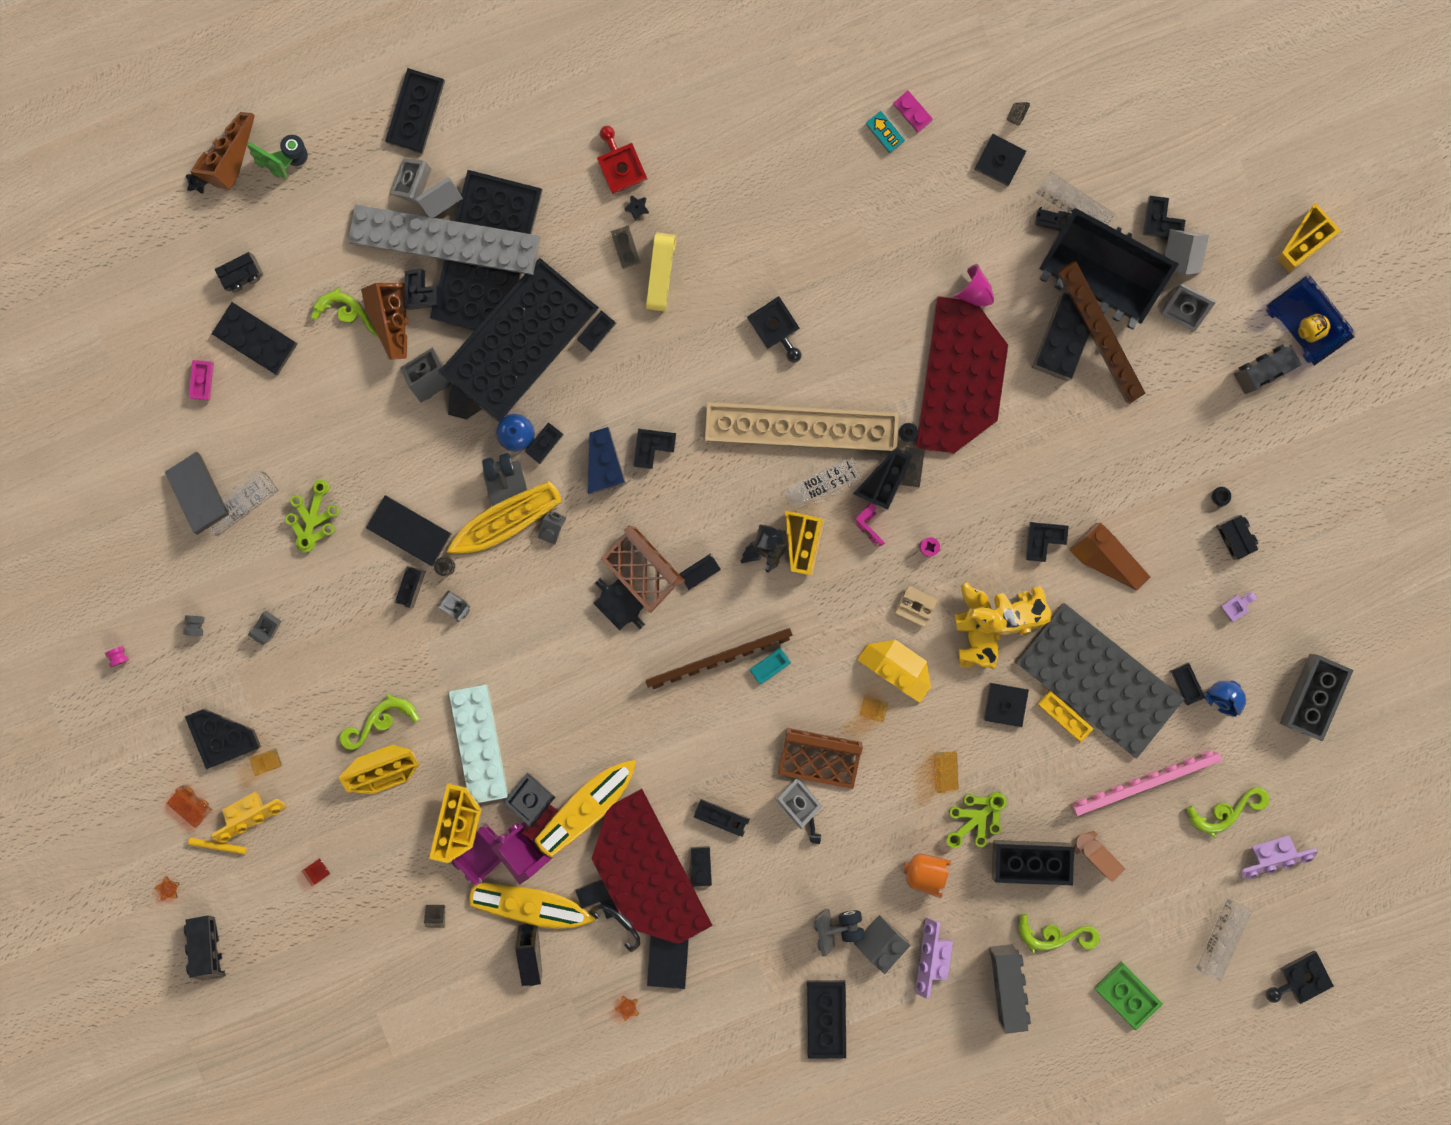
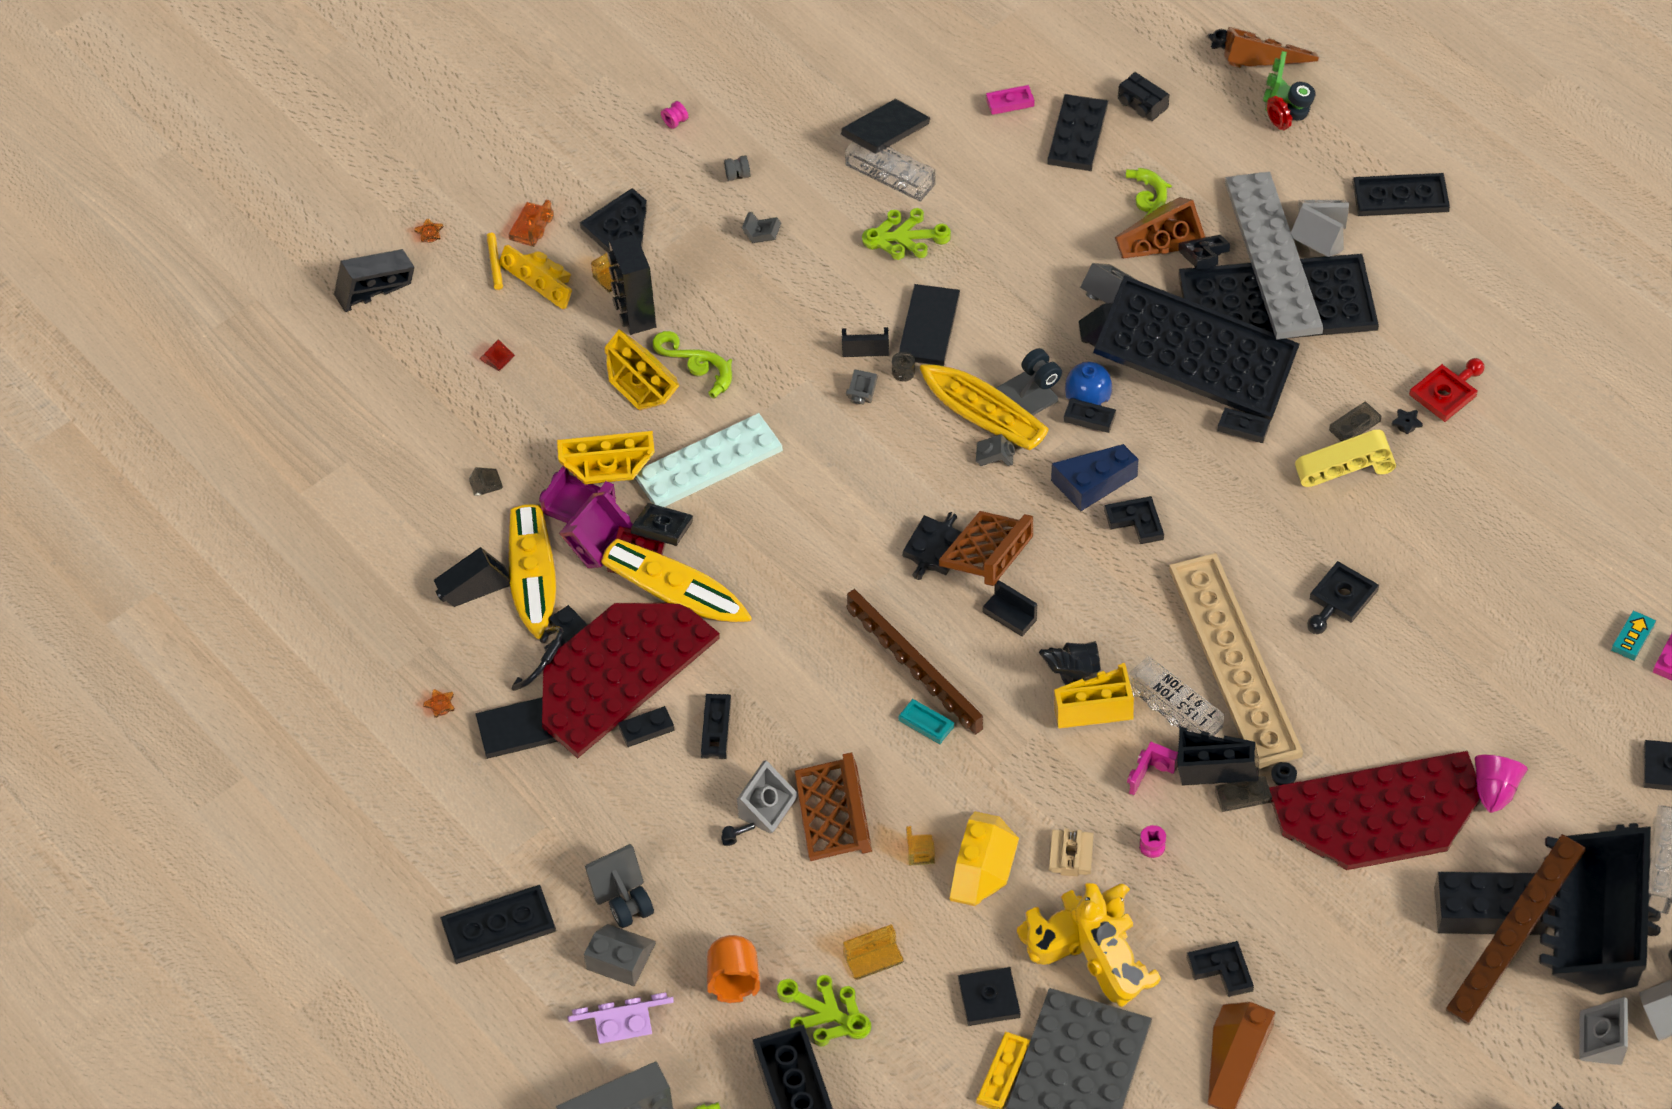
camera: 70 degrees right, 35 degrees down
(300, 171) = (1279, 113): none -> red gear
(300, 757) = (631, 284): none -> black brick

